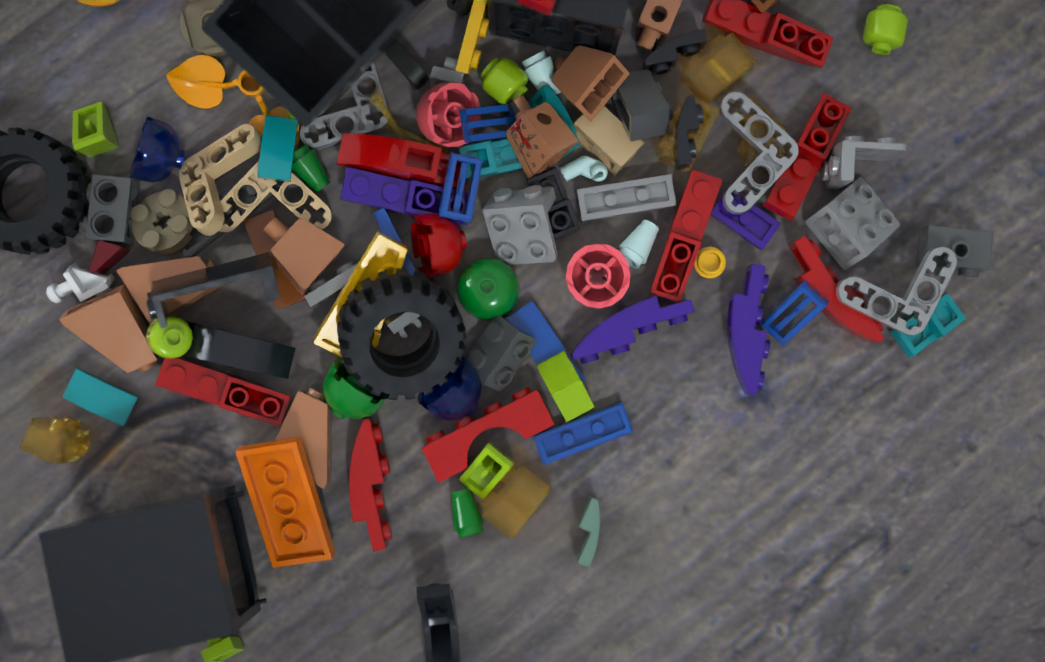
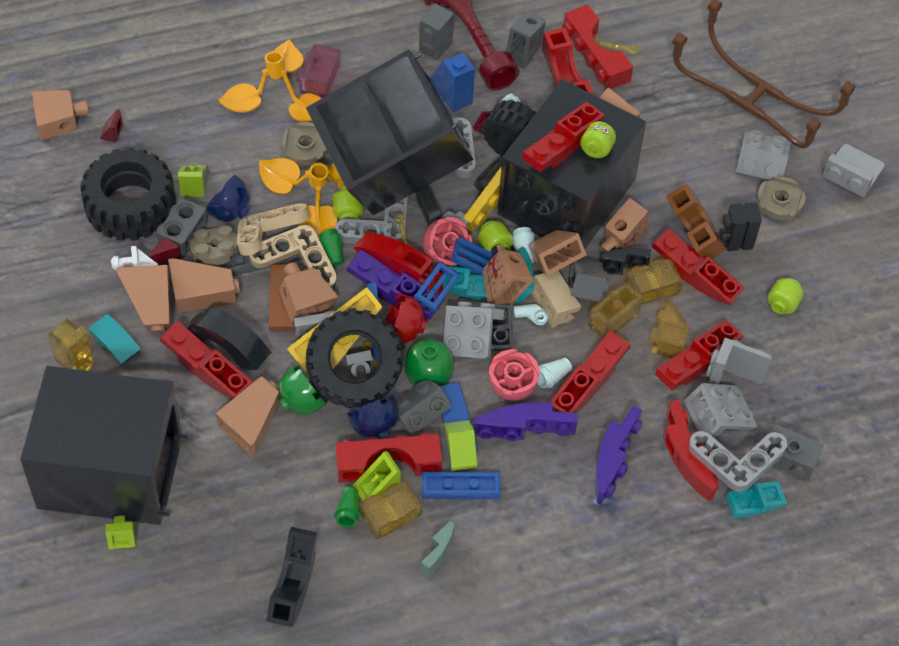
camera: 15 degrees right, 30 degrees down
(171, 340) = (186, 307): lime head -> none
(209, 278) = (237, 275): black panel -> none
(277, 148) = (316, 224): teal slope -> none
(285, 502) = (218, 445): orange plate -> none
(366, 470) = (283, 457): red slope -> none
(626, 198) = (554, 340): light grey plate -> none
(687, 124) = (612, 297): black slope -> none
(709, 262) = (601, 402): yellow plate -> none
(752, 225) = (638, 382): dark purple plate -> none
(767, 157) = (666, 337): light grey beam -> none
(811, 295) = (671, 439): blue tile -> none

